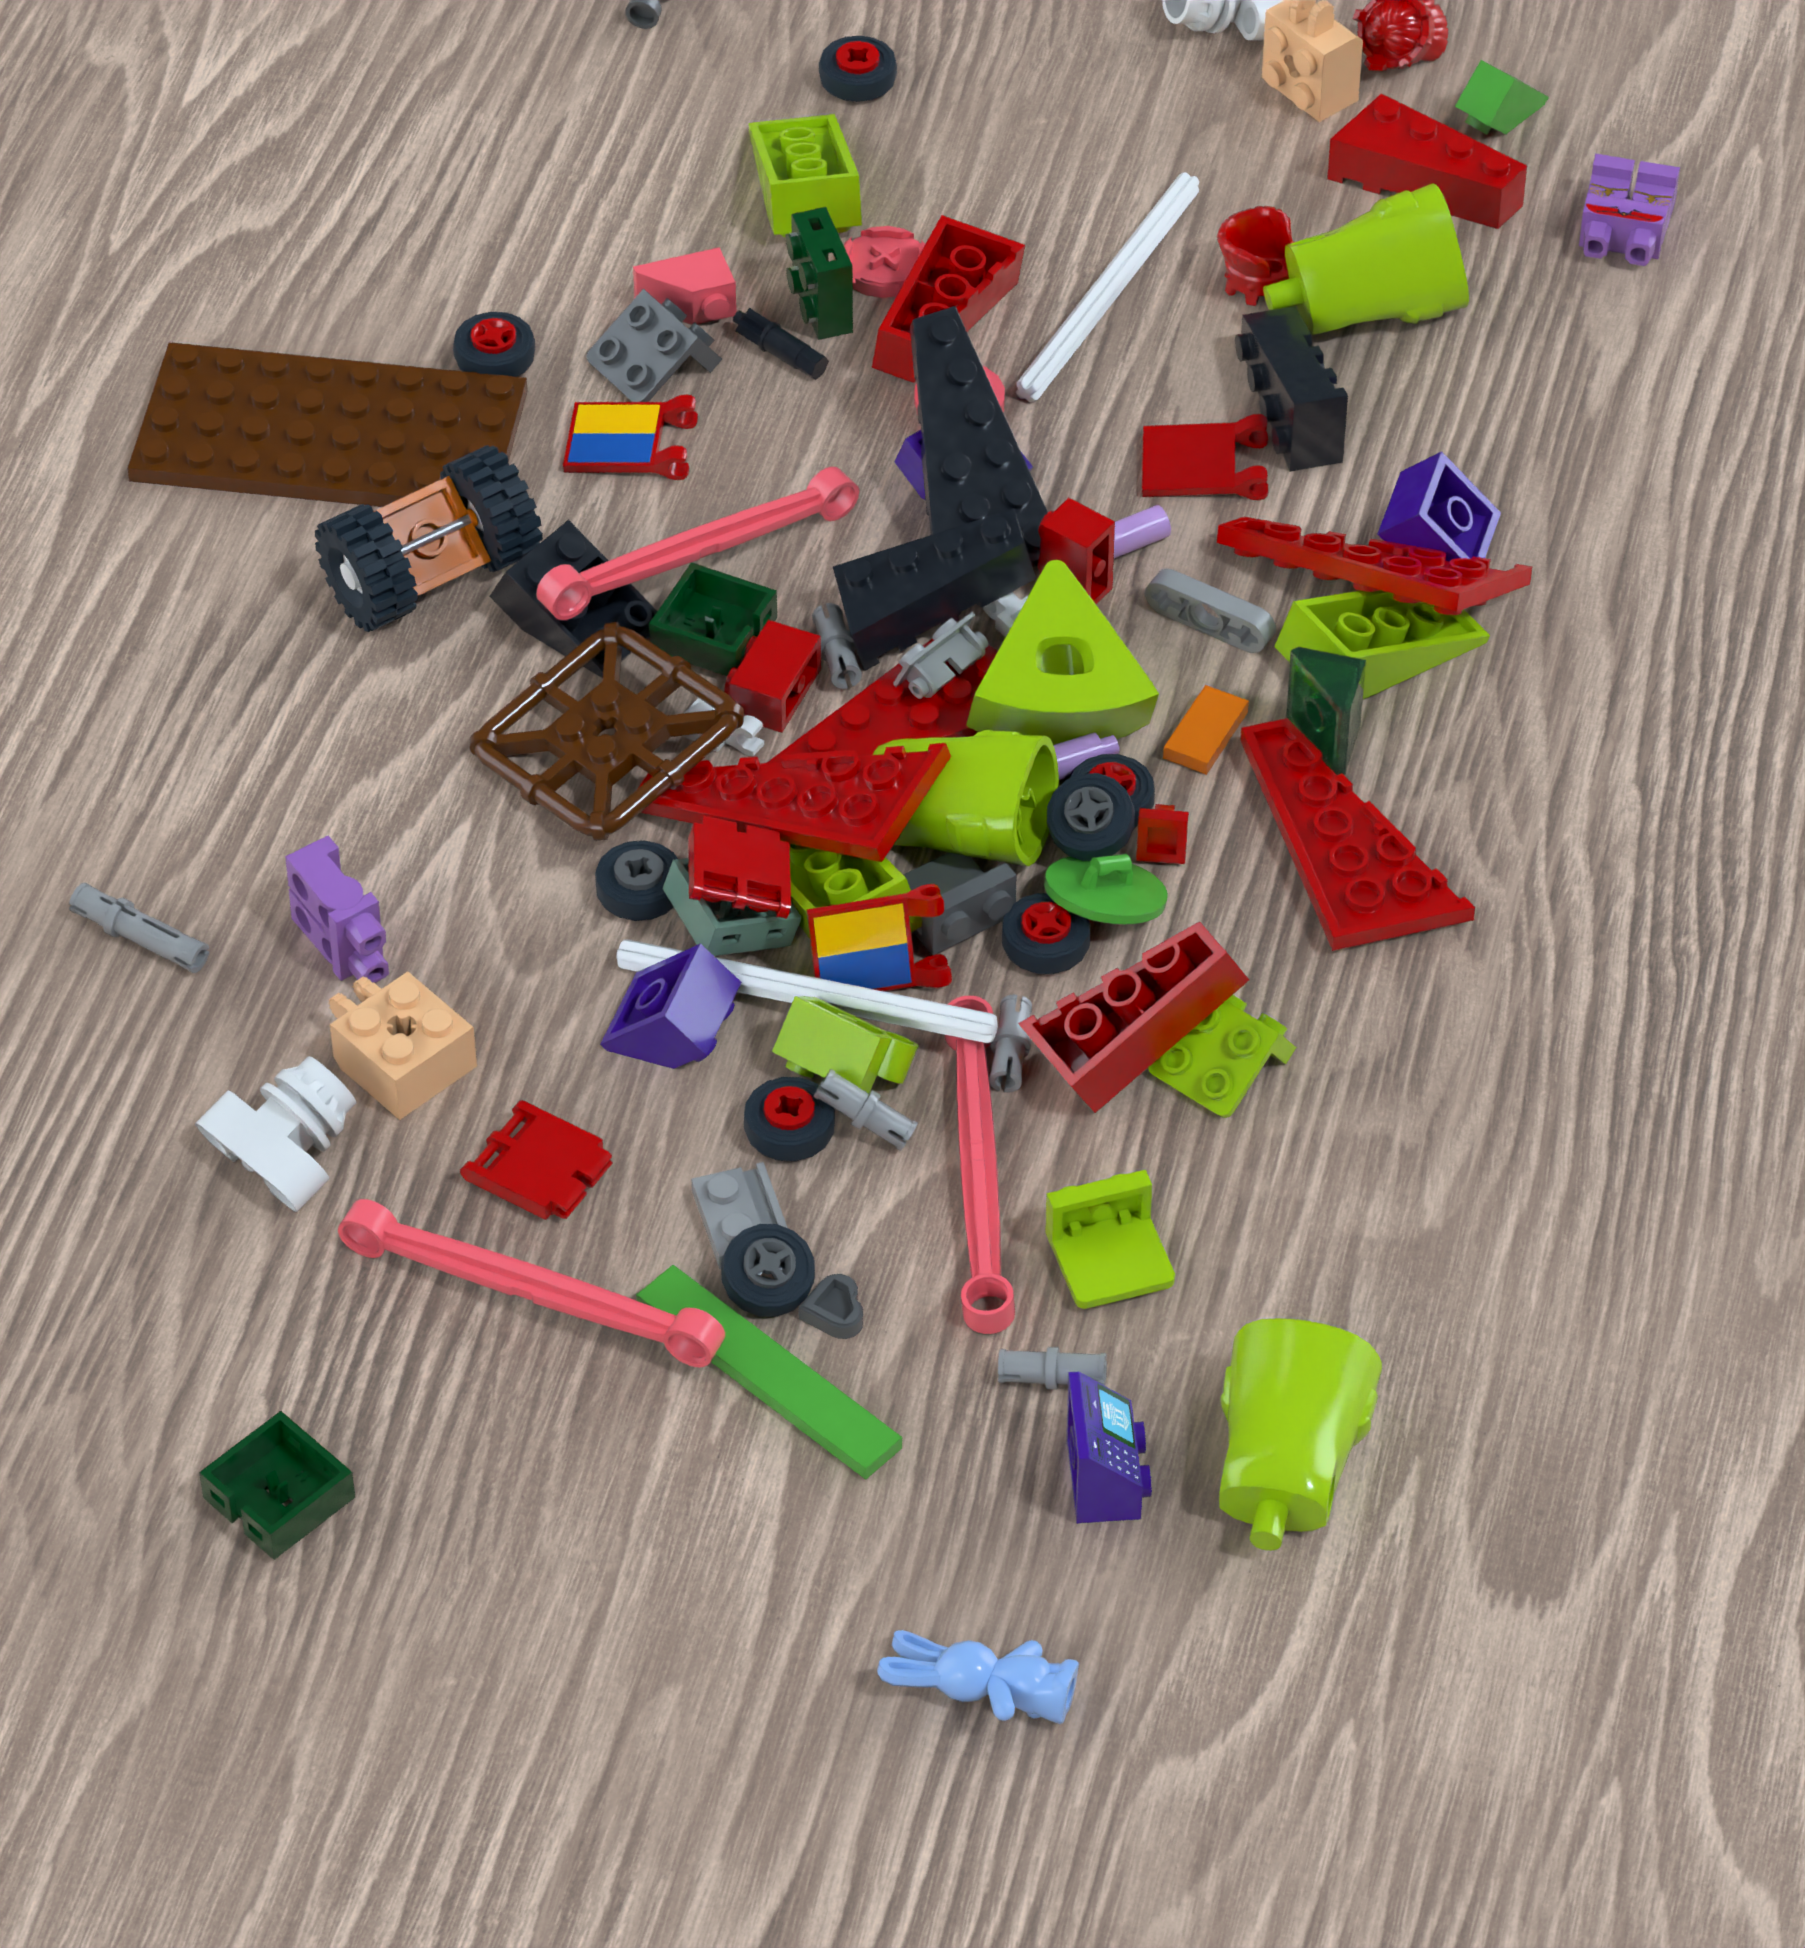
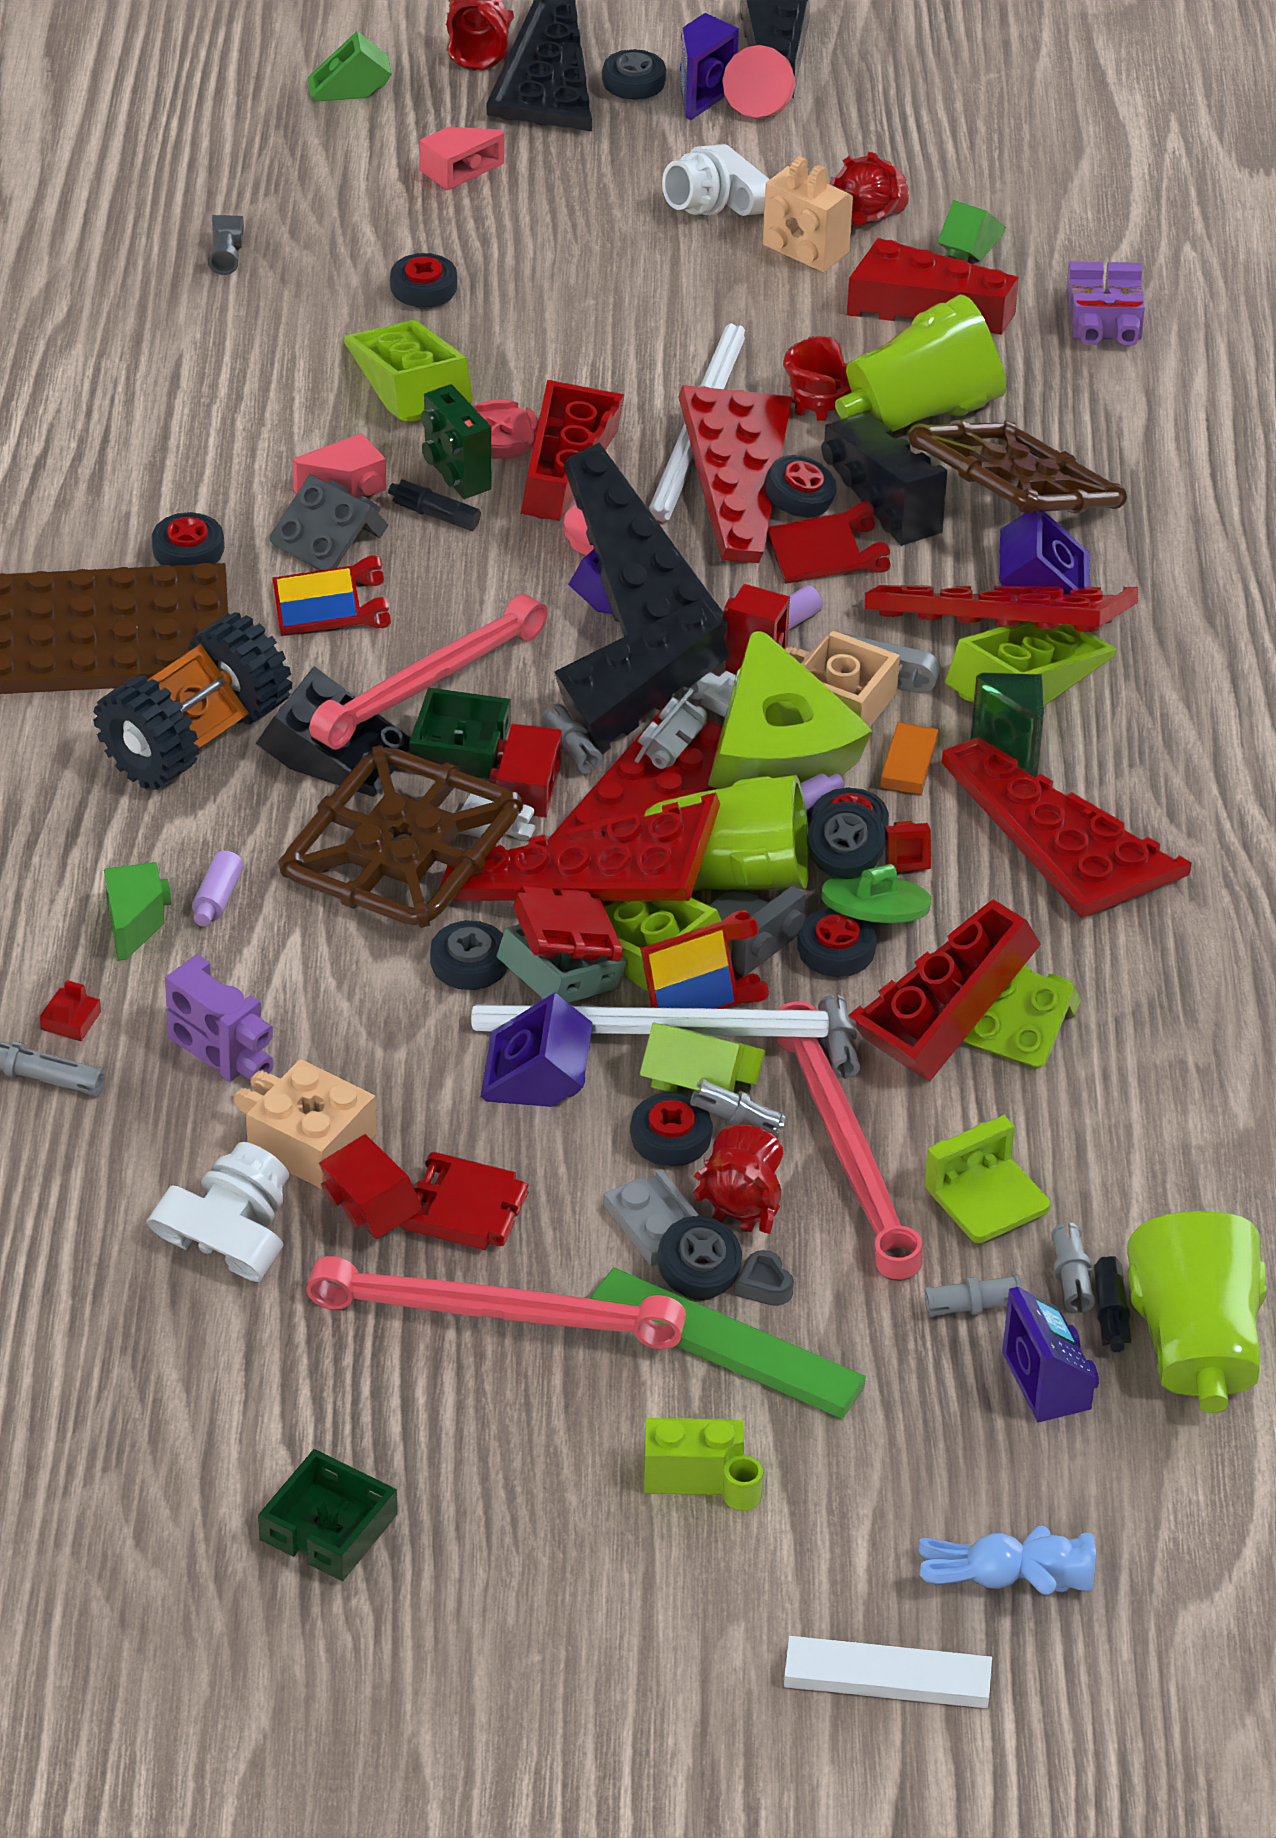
camera: 15 degrees left, 5 degrees down
(195, 873) = (70, 1012): none -> red tile
(299, 763) = (135, 904): none -> bright green slope
(394, 757) = (217, 887): none -> lavender cylinder
(437, 1128) = (369, 1187): none -> red brick
(688, 1498) = (701, 1460): none -> lime hinge
(813, 1770) = (888, 1672): none -> white tile
(836, 1188) = (742, 1177): none -> red hair
(1135, 334) = (733, 446): none -> wing
(1161, 624) = (854, 671): none -> light nougat hinge
(1174, 1355) = (1073, 1268): none -> light grey pin
(1194, 383) = (800, 486): none -> black wheel
(1201, 1409) = (1112, 1303): none -> black piece
(1441, 400) = (1012, 471): none -> reddish brown plate

